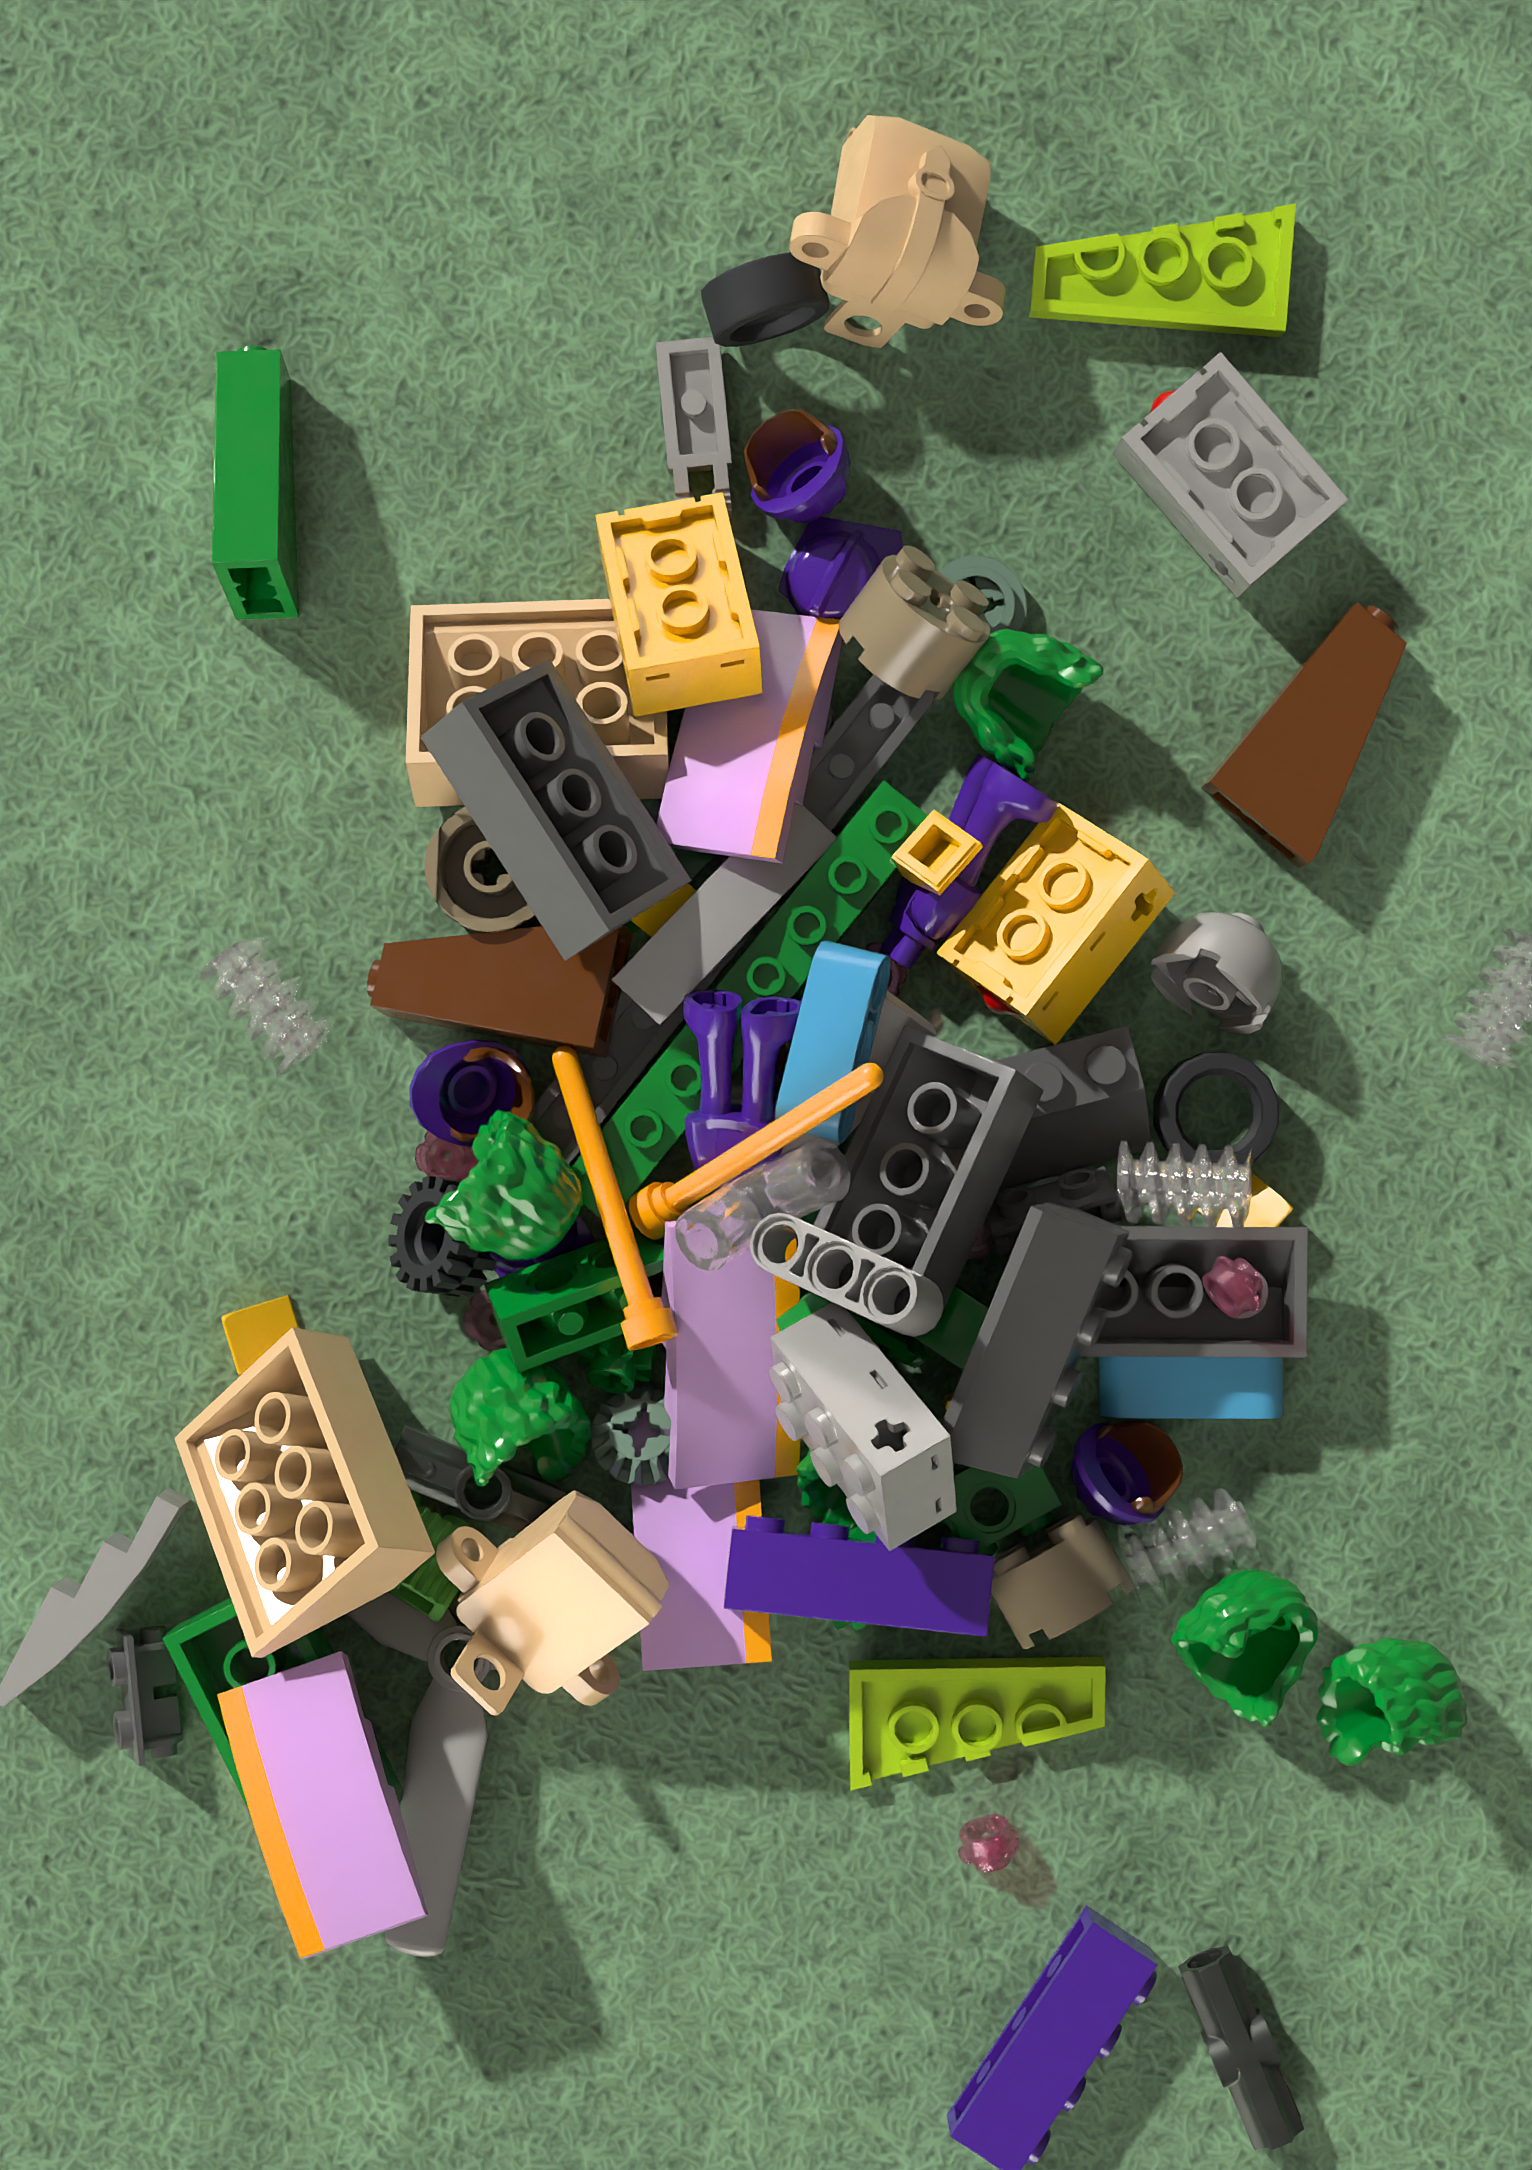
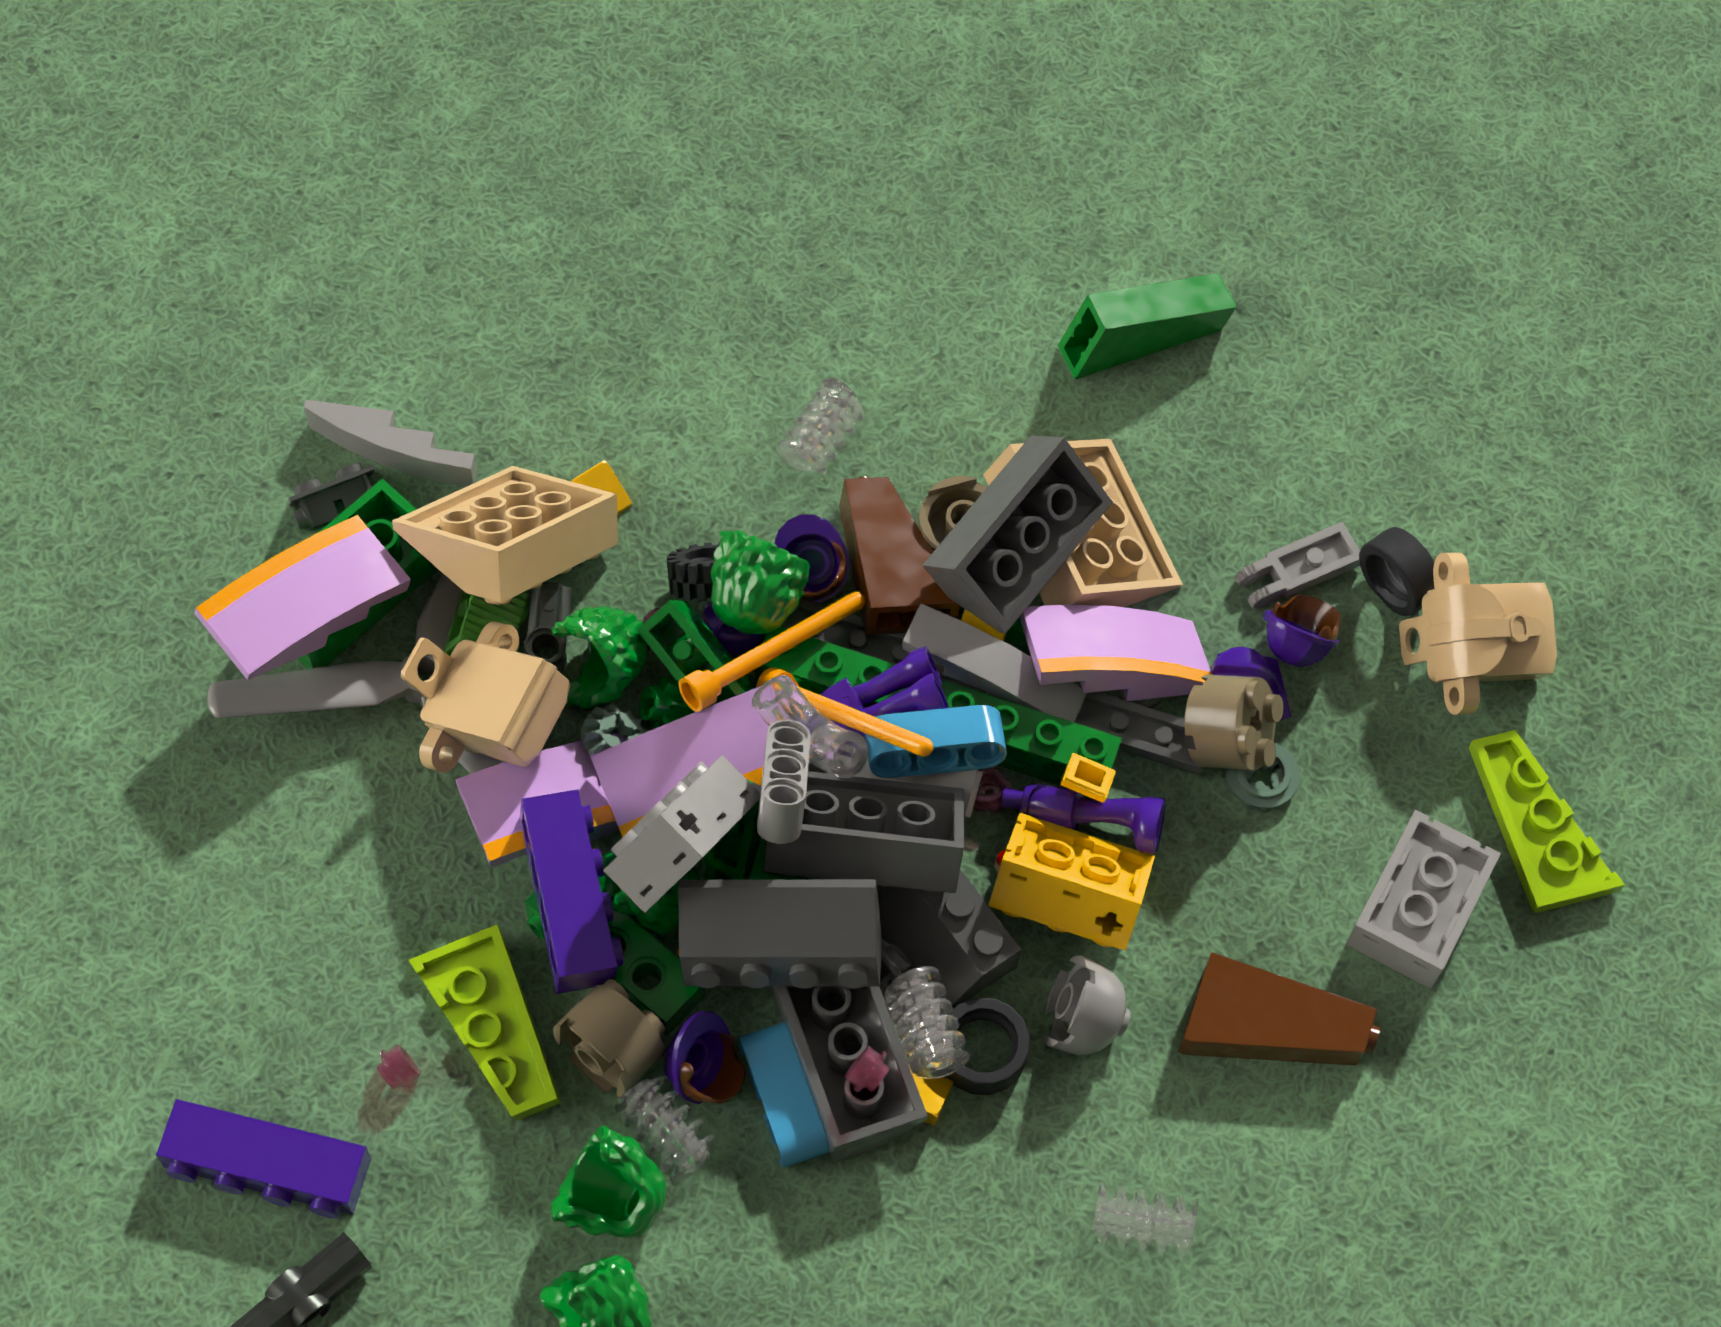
camera: 70 degrees right, 25 degrees down
(679, 604) = (1180, 576): yellow piece -> none
(1018, 692) = (1215, 811): green hair -> none

